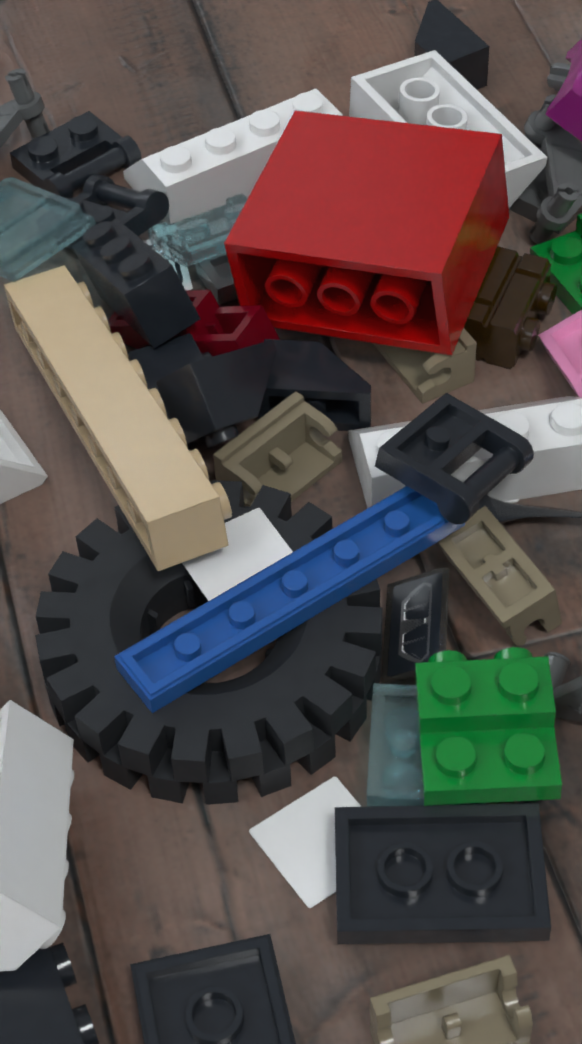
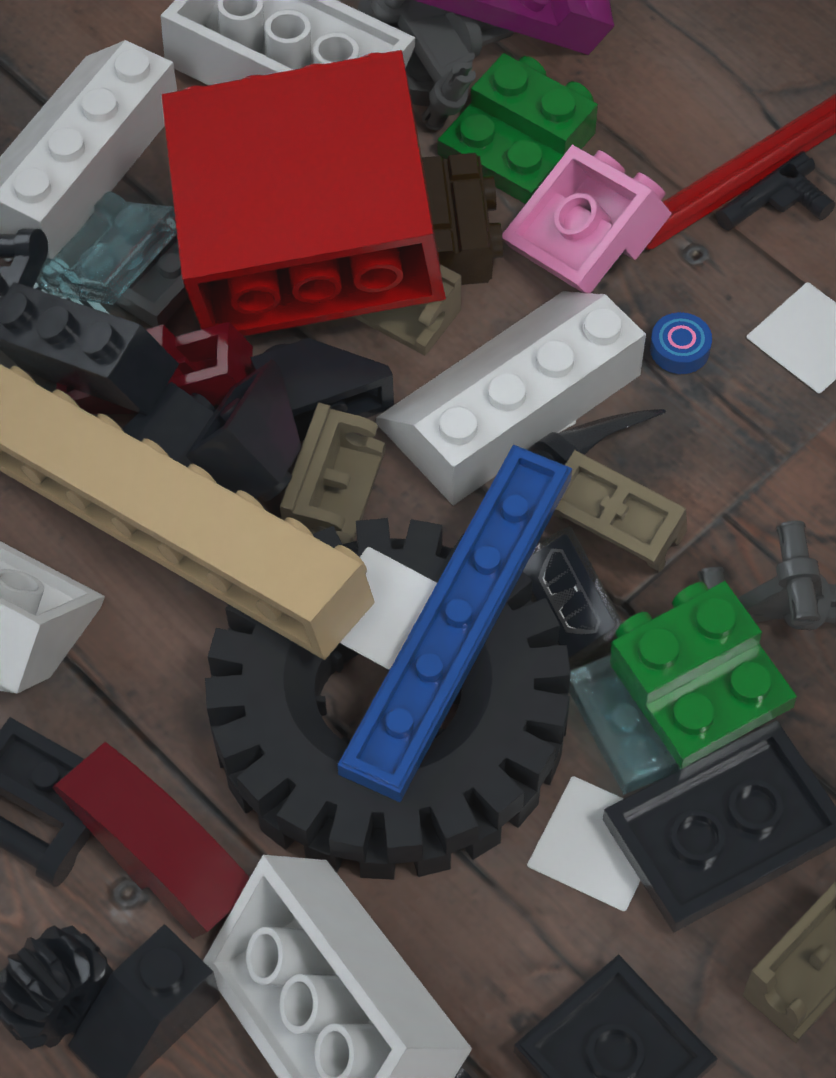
camera: 30 degrees left, 10 degrees up
(441, 442) = (515, 413): black plate -> none

